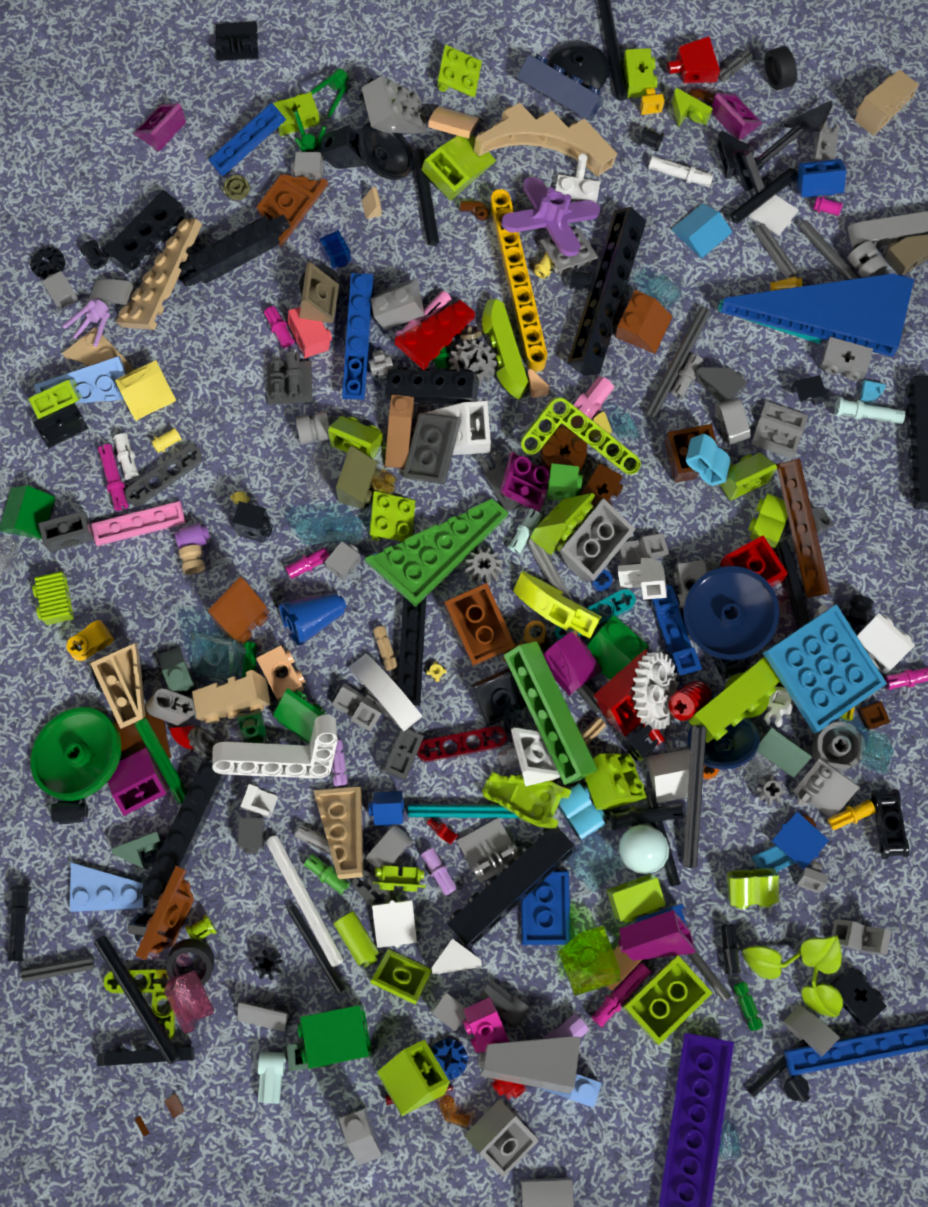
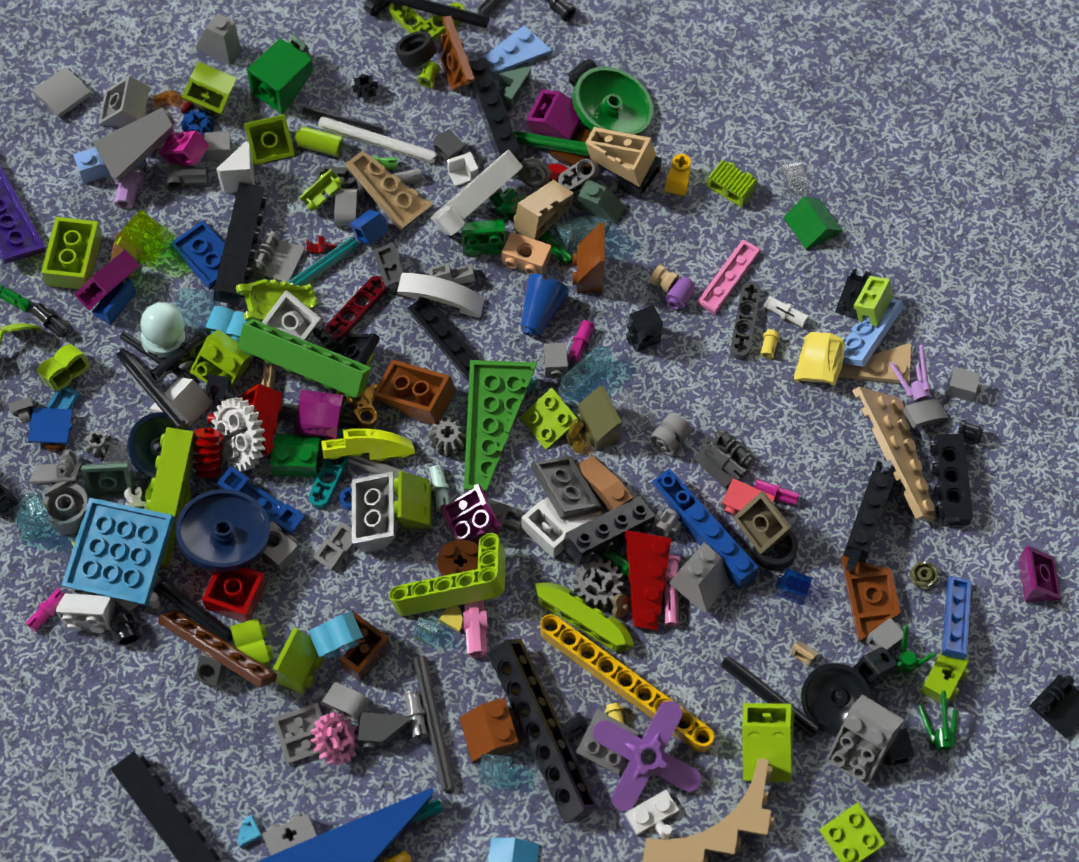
camera: 140 degrees right, 10 degrees down
(43, 270) = (990, 405): black gear -> none
(66, 531) = (768, 225): dark grey brick -> none
(115, 485) = (780, 290): dark pink pin -> none
(139, 925) = (471, 48): black tile -> none
(188, 1000) = (397, 27): clear pink panel -> none
(240, 496) = (674, 347): light yellow piece -> none
(262, 1016) = (343, 62): light grey slope -> none
(271, 1072) = (304, 31): light aqua piece -> none
(339, 766) = (432, 233): lavender axle -> none
(349, 432) = (630, 448): lime slope -> none
(385, 648) = (469, 329): tan axle -> none
(394, 923) = (302, 169): white piece -> none
(436, 671) = (418, 342): light yellow piece -> none
(438, 871) = (300, 220): lavender axle -> none
(453, 122) = (809, 779): light nougat slope -> none
(475, 208) = (719, 722): reddish brown arm -> none
(537, 385) = (531, 606): light nougat slope -> none
(563, 482) = (436, 534): bright green brick -> none
(605, 480) = (402, 548): reddish brown brick -> none
(620, 995) = (109, 230): dark pink pin -> none
(636, 898) = (143, 296): lime brick -> none
(647, 575) = (311, 521): white brick -> none
(709, 976) = (56, 297): flat silver bar -> none
(763, 397) = (335, 739): none -> bright pink gear
(810, 389) = (301, 781): black panel -> none
(852, 814) = (23, 473): yellow axle -> none
(859, 409) = (247, 801): light aqua pin -> none
(874, 716) = (55, 561): reddish brown tile -> none

